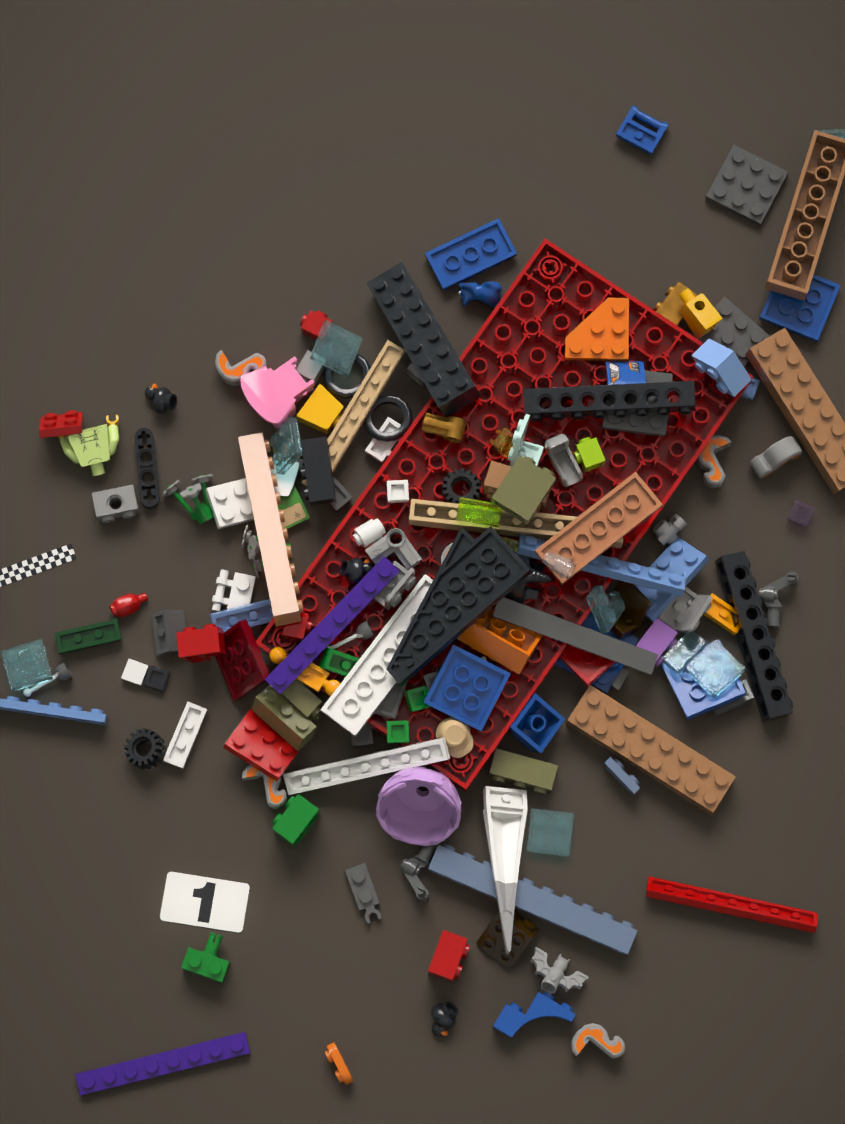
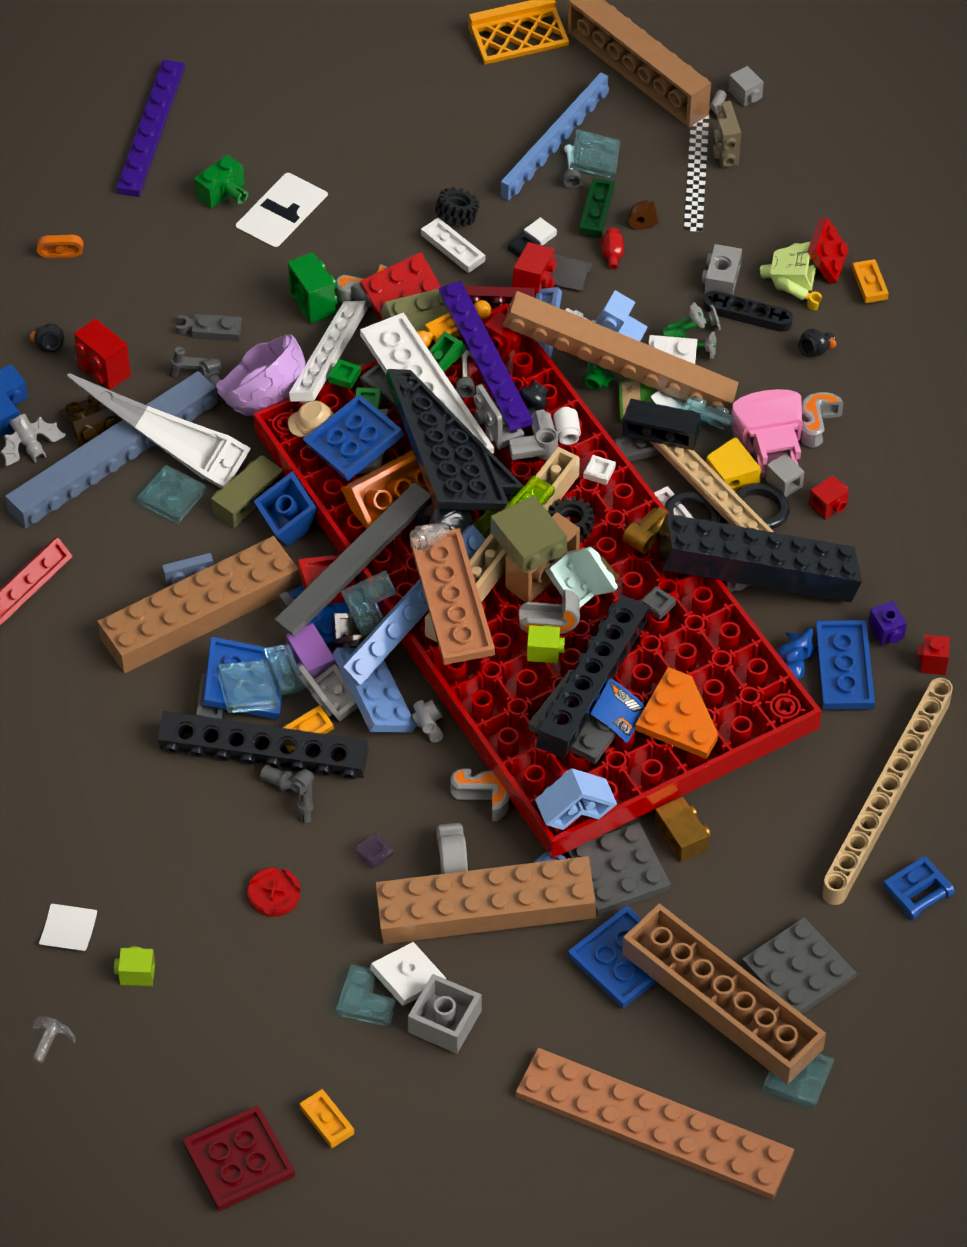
camera: 115 degrees right, 25 degrees down
(71, 384) = (870, 281): none -> light orange plate
(79, 595) = (643, 215): none -> reddish brown piece
(225, 555) = (616, 317): none -> light blue brick
(336, 348) = (793, 495): clear light blue plate -> none
(422, 235) = (887, 623): none -> dark purple brick
(433, 192) = (934, 654): none -> red brick
(506, 392) = (659, 602): none -> dark grey tile
(579, 175) = (915, 739): none -> tan beam
(699, 313) = (656, 826): yellow torso -> none

